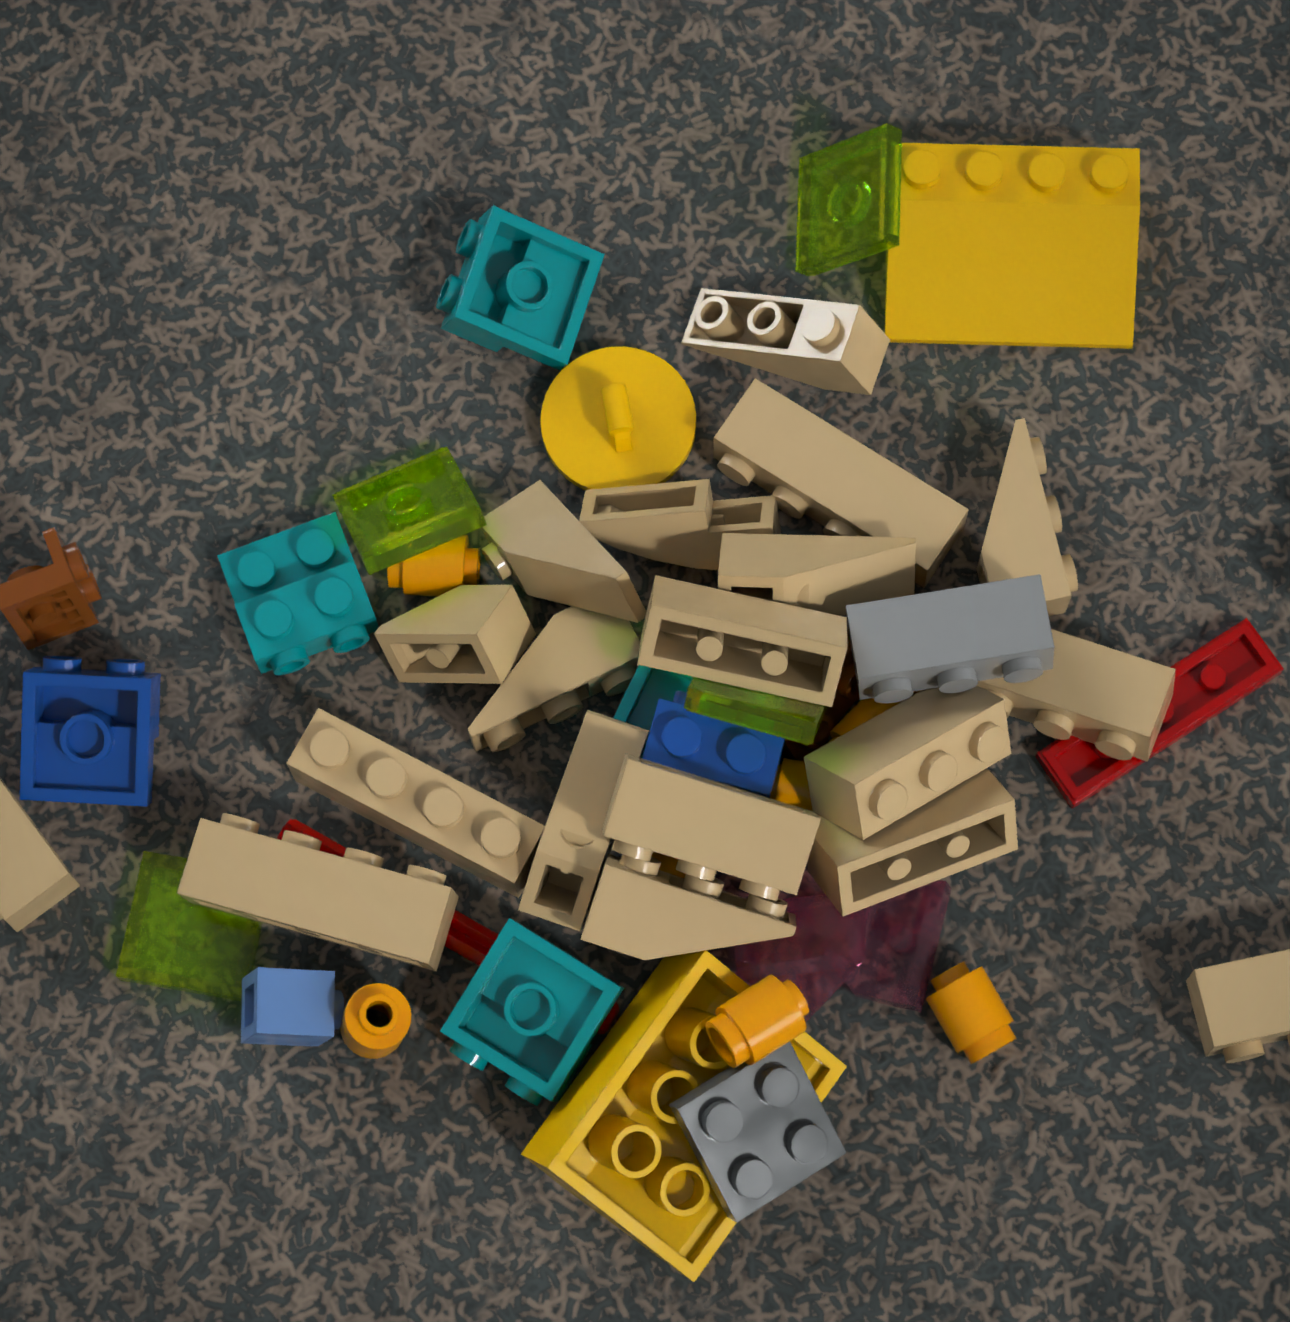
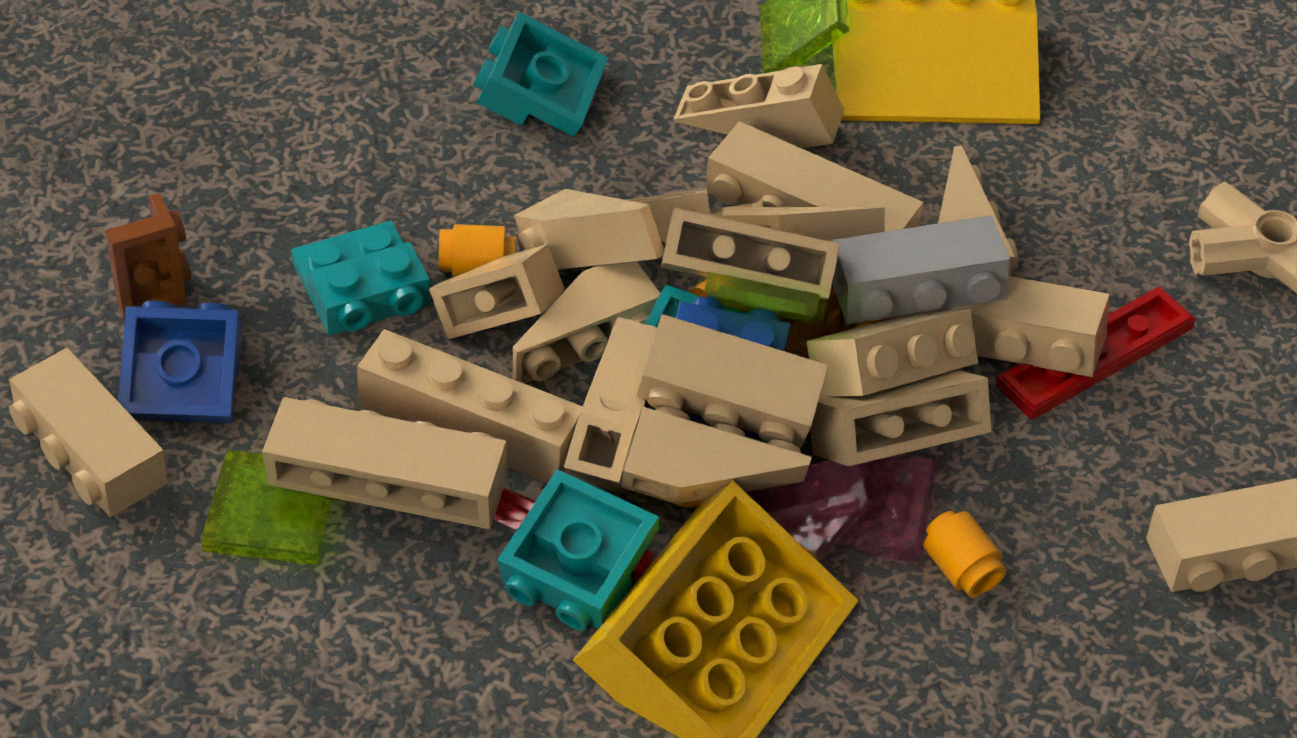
camera: 10 degrees left, 25 degrees down
(290, 1007) = (360, 551): medium blue brick -> none
(370, 1040) = (438, 558): light orange brick -> none
(408, 510) = (455, 209): clear neon green tile -> none
(618, 419) = (625, 159): yellow shield -> none
(757, 1131) = (786, 632): plate -> none
(758, 1021) = (782, 533): light orange brick -> none

